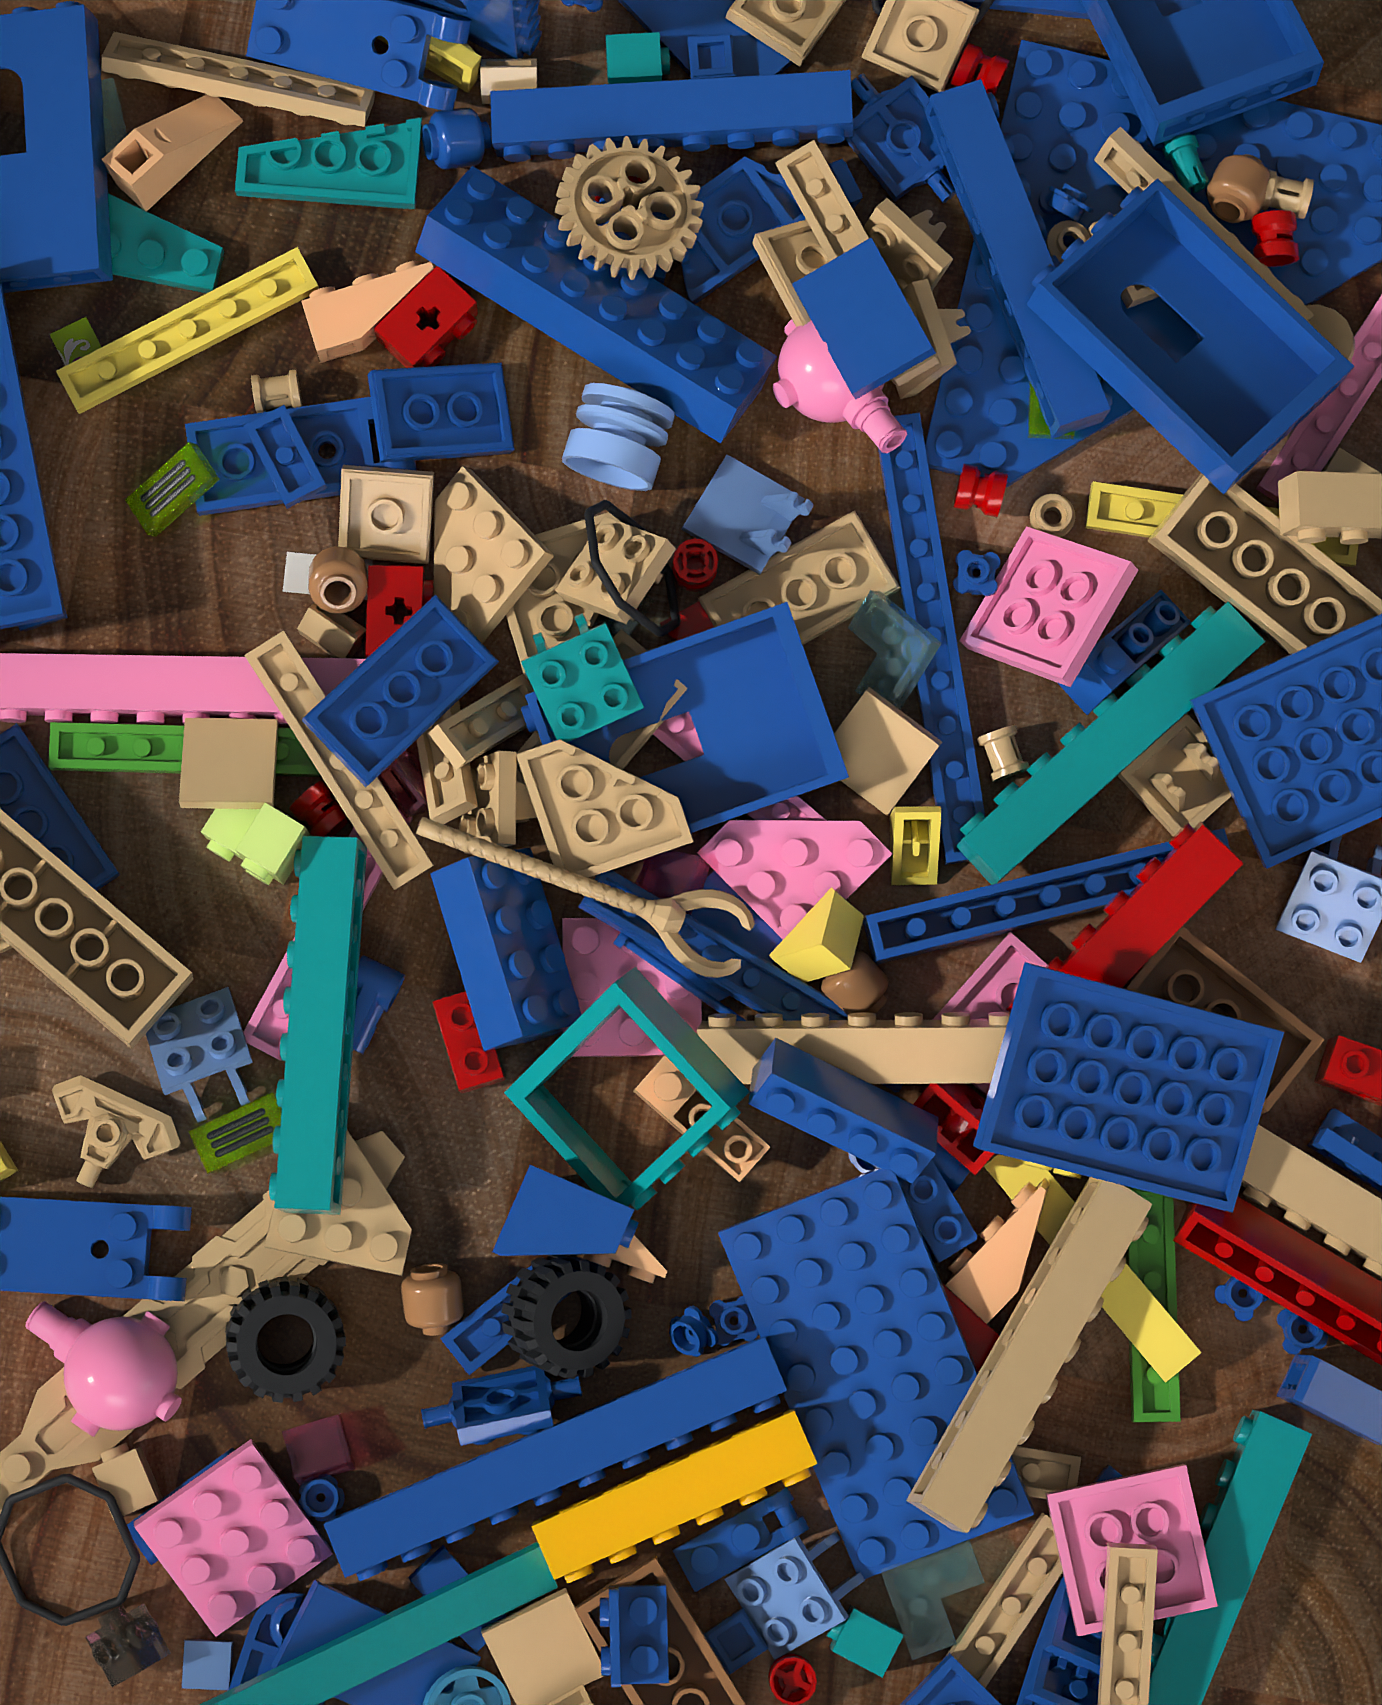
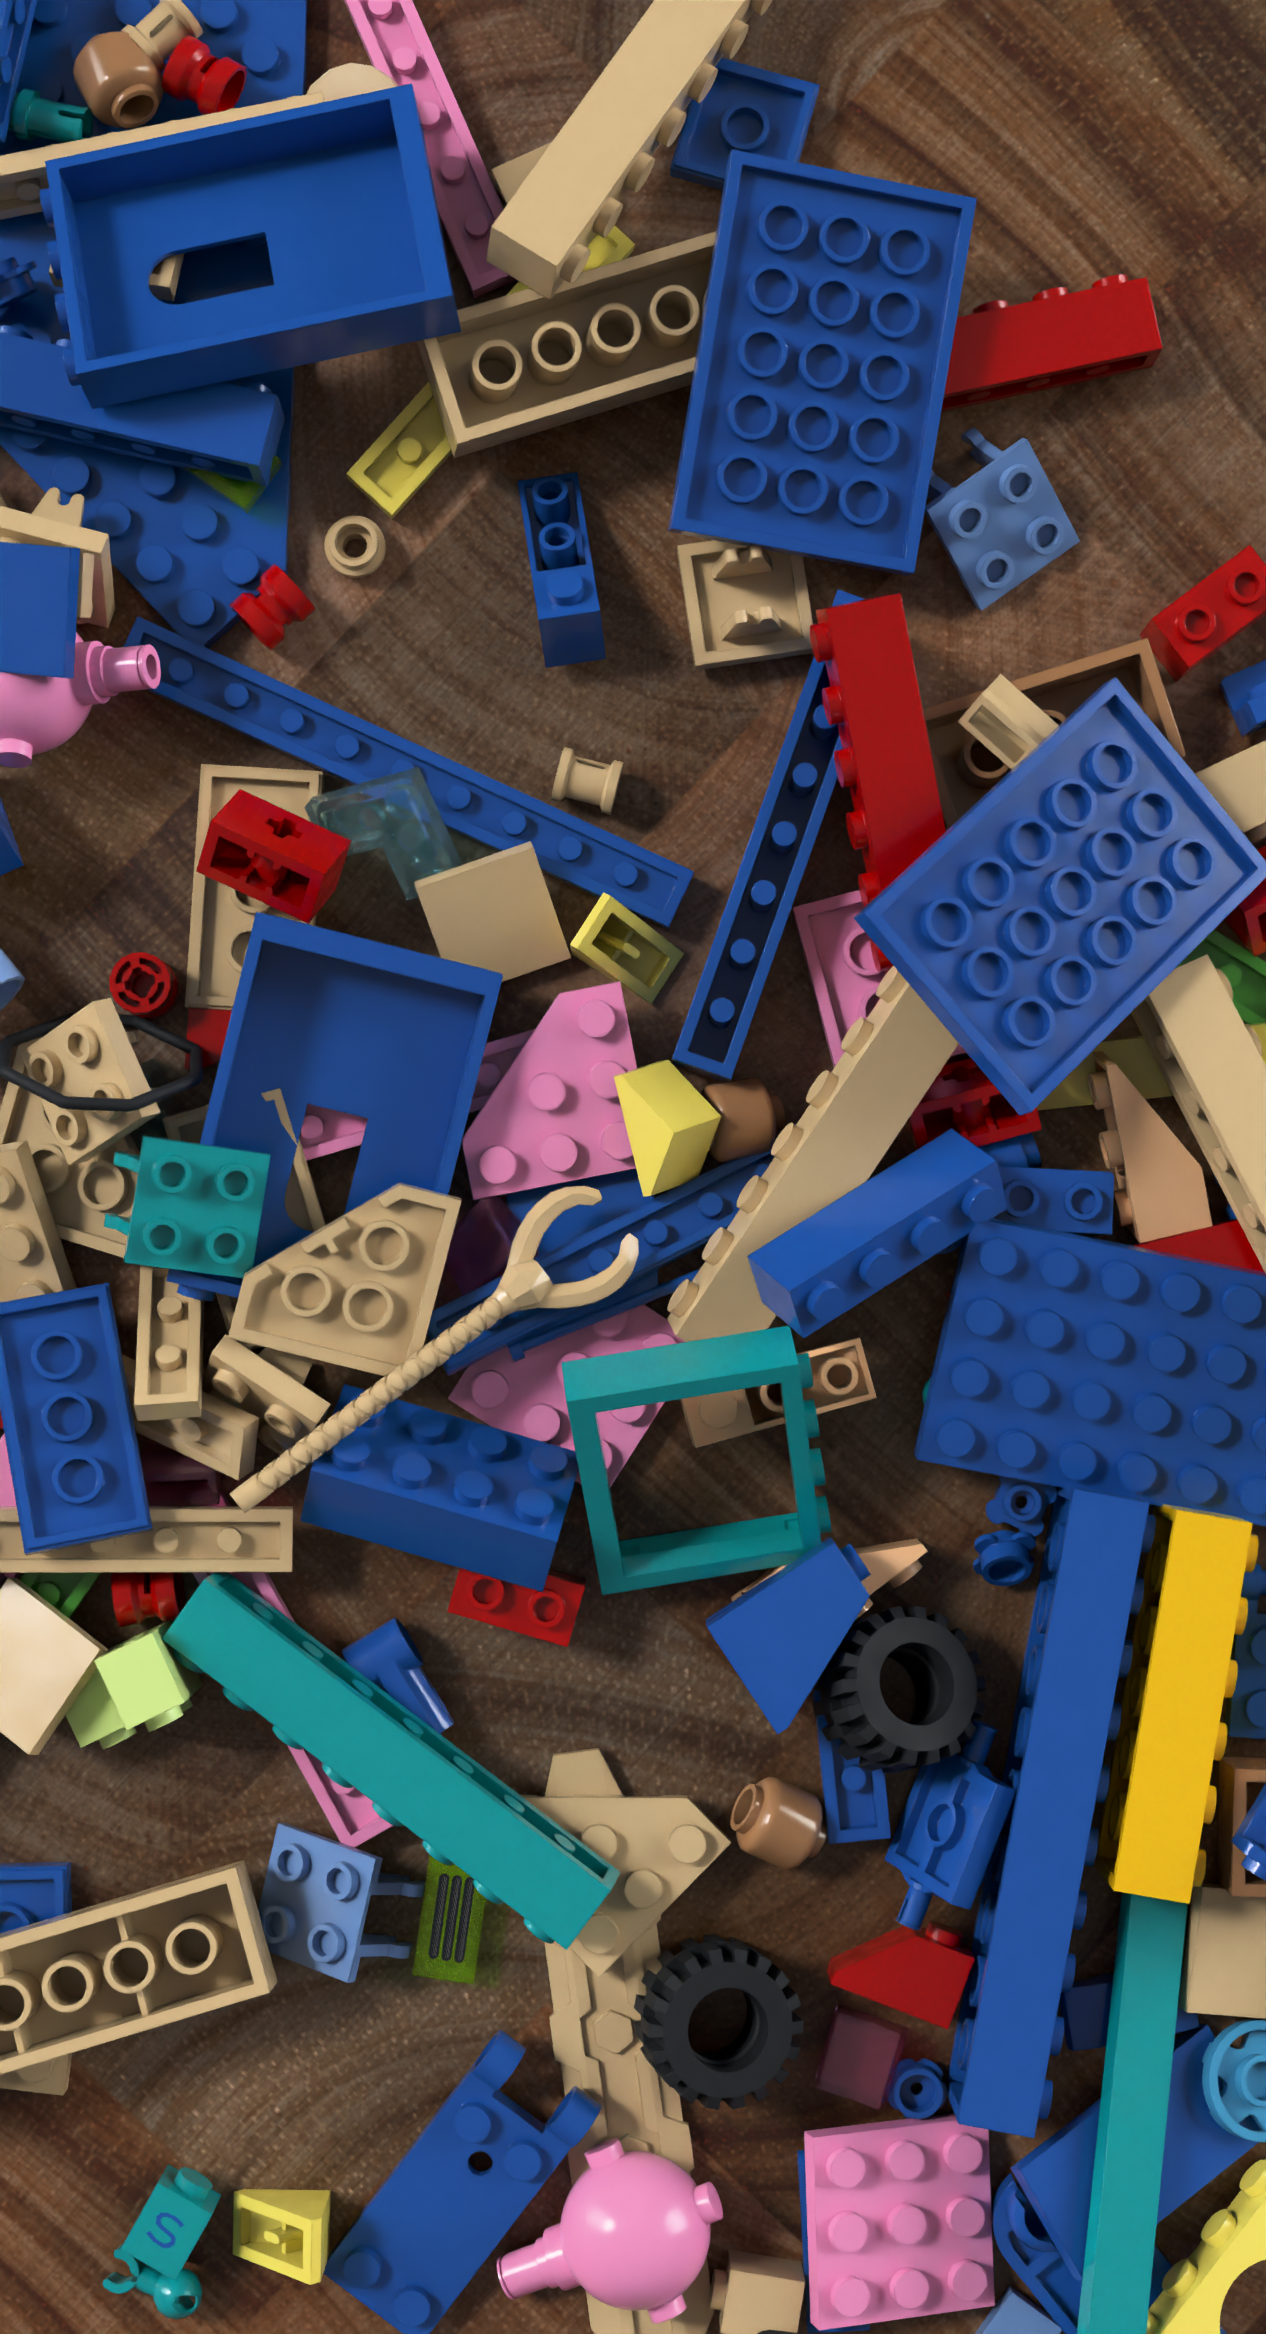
camera: 45 degrees left, 5 degrees up
(112, 1125) = (348, 2056): tan piece -> none
(393, 1442) = (908, 1971): none -> red slope
(745, 514) = (124, 890): medium blue plate -> none
(827, 591) = (273, 856): none -> red brick
(983, 584) = (380, 674): blue plate -> none
(1049, 606) = (456, 617): bright pink plate -> none
(1055, 237) = (33, 315): tan plate -> none
(1109, 743) = (656, 654): teal brick -> none
(1211, 983) = (1007, 722): none -> tan piece

